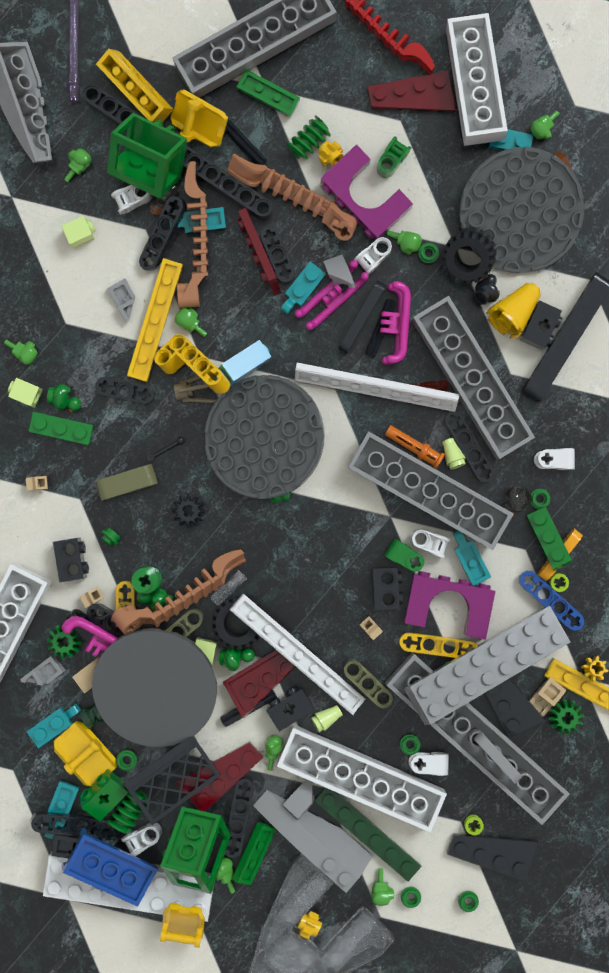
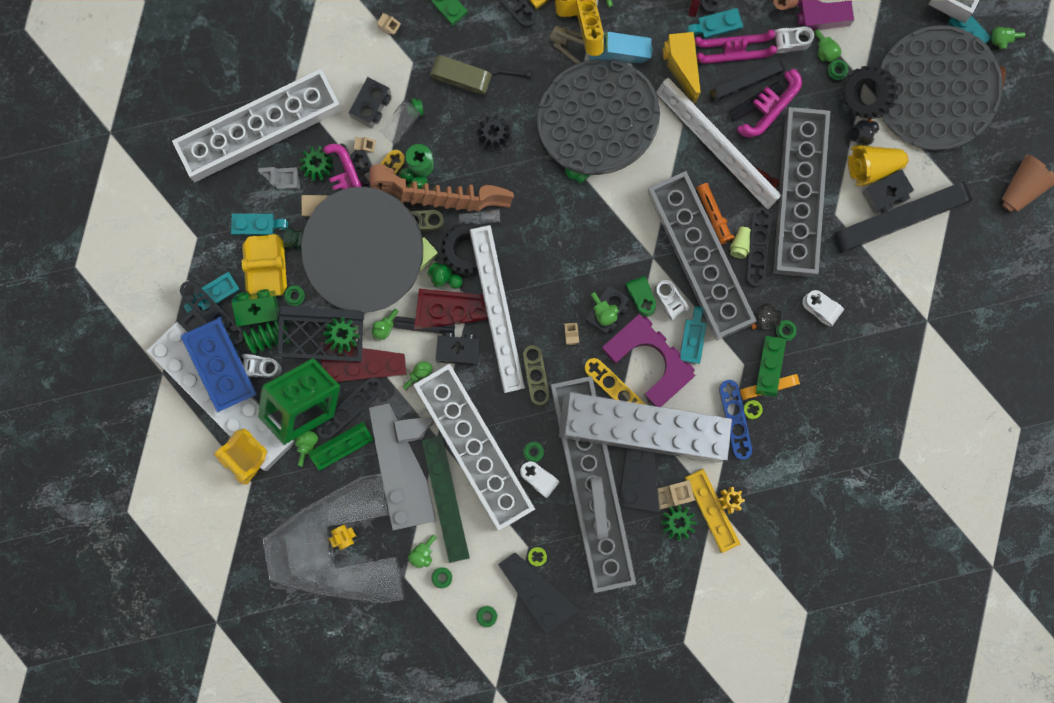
camera: 30 degrees right, 5 degrees down
(106, 558) = (400, 122): none -> clear tile
(191, 776) = (343, 328): none -> green gear
(218, 736) = (383, 328): none -> bright green piece
(298, 340) = (682, 61): none -> yellow slope
(325, 718) = (479, 379): yellowish green cone -> none
(339, 271) = (755, 31): light grey slope -> none
(387, 595) = (605, 313): none -> bright green piece

